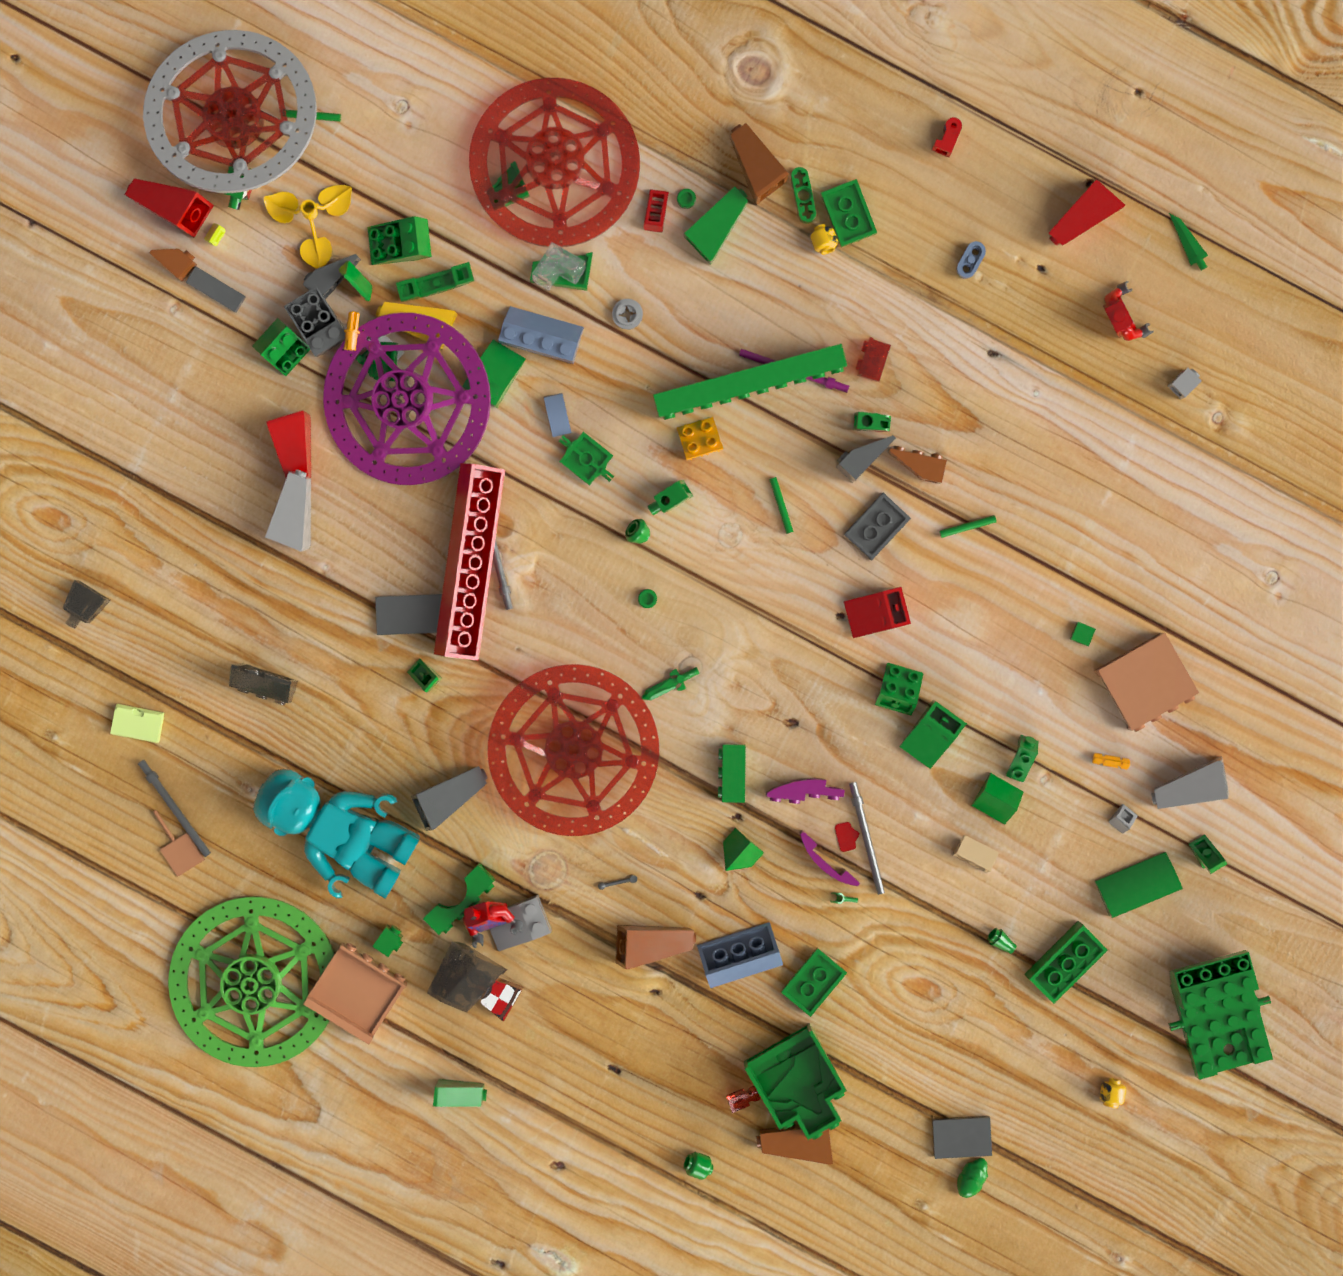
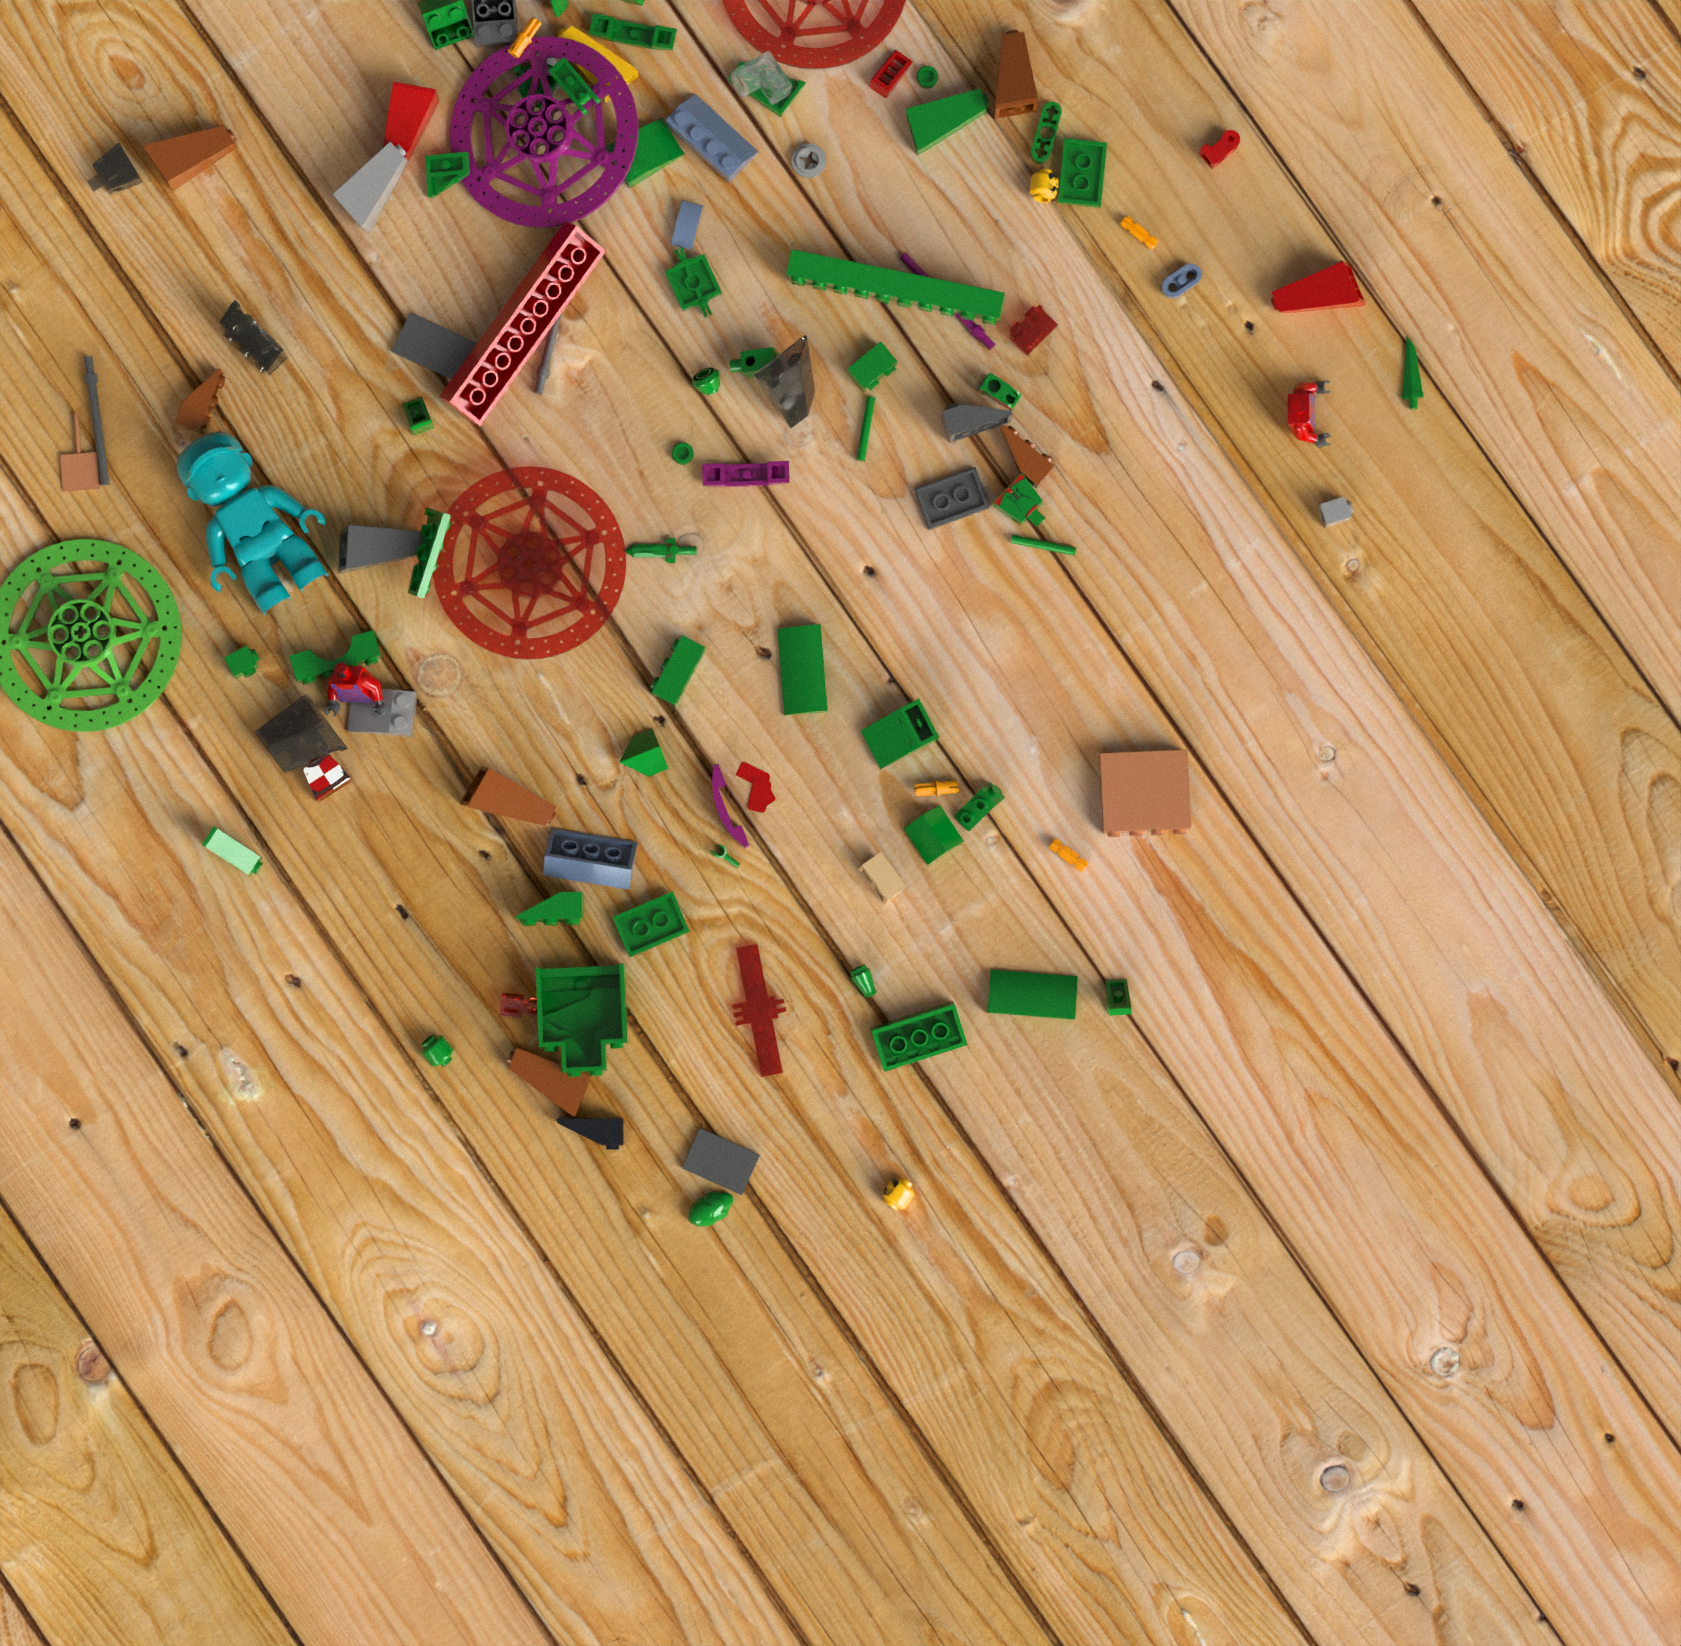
camera: 25 degrees right, 5 degrees down
(134, 562) = (190, 154): none -> dark orange slope
(137, 723) = (104, 317): yellowish green piece -> none
(247, 758) = (197, 406): none -> dark orange slope
(344, 470) = (445, 171): none -> green wing
(355, 992) = (182, 696): nougat panel -> none
(410, 350) = (572, 84): none -> green hinge
(489, 782) = (428, 551): none -> green wing
(633, 879) = (521, 727): dark grey hinge -> none
(699, 438) = (817, 320): light orange hinge -> none
(705, 501) = (789, 382): none -> clear smoke wedge
(706, 590) = (746, 474): none -> magenta slope
(739, 1007) = (562, 907): none -> green slope
(762, 454) = (872, 367): none -> green brick
(797, 789) = (734, 720): magenta slope -> none
(829, 722) = (802, 670): none -> green slope
(830, 822) = (750, 773): none -> red sticker
(855, 1163) = (604, 1131): none -> black slope
(857, 801) = (789, 765): flat silver bar -> none
(877, 612) = (906, 583): red slope -> none
(899, 689) = (889, 672): green bracket -> none
(918, 238) = (1139, 232): none -> light orange axle
(931, 1005) = (759, 1010): none -> clear red hinge
(933, 502) = (1020, 502): none -> green torso
(982, 761) = (936, 788): none -> light orange axle
(1082, 634) = (1105, 712): green tile -> none
(1123, 819) = (1051, 920): light grey slope -> none
(1195, 786) = (1143, 921): light grey slope -> none
(1219, 1009) = (1050, 1165): green piece -> none

